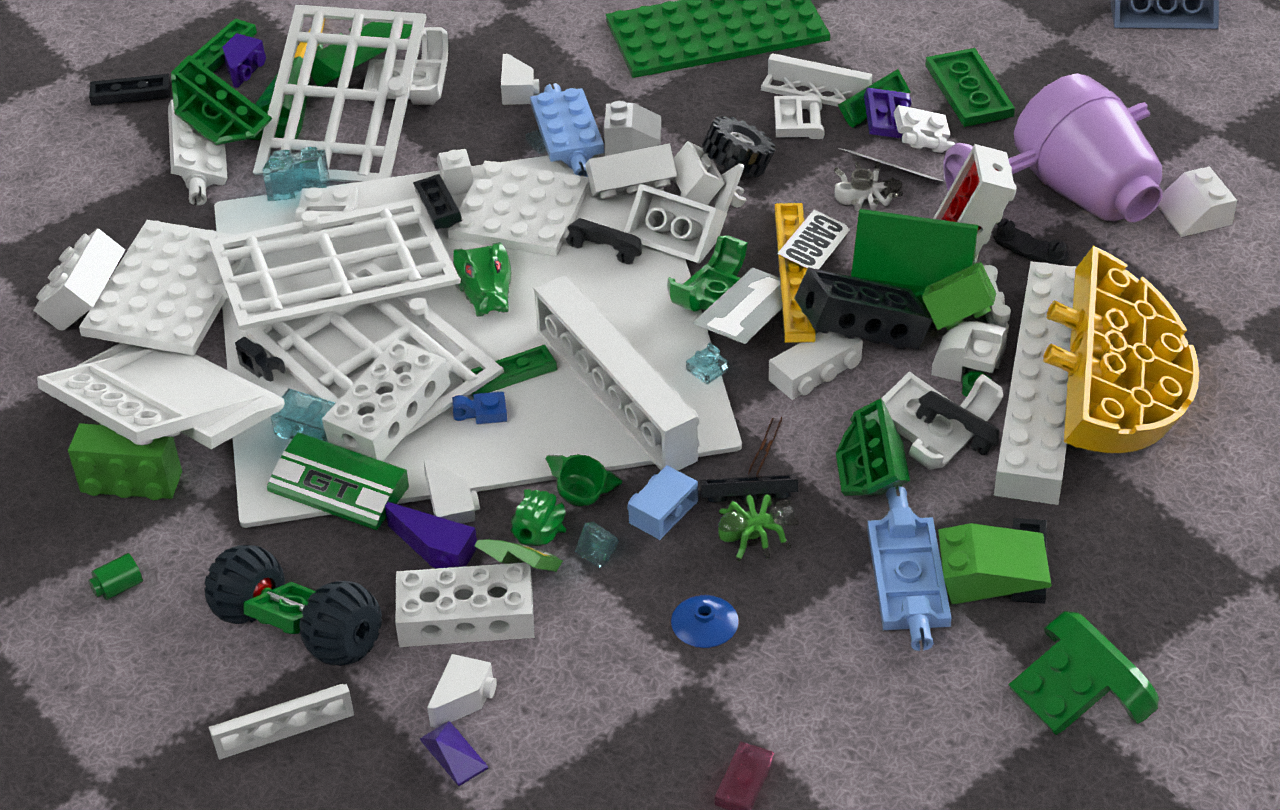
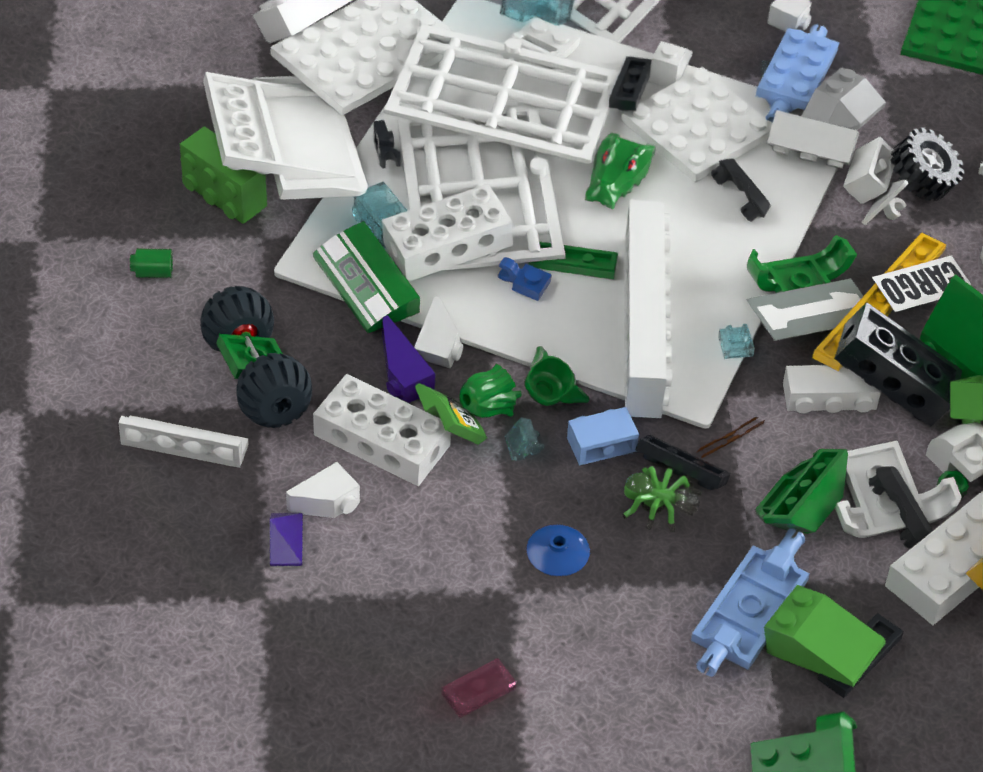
camera: 30 degrees right, 5 degrees up
(674, 223) = (811, 204): white slope -> none

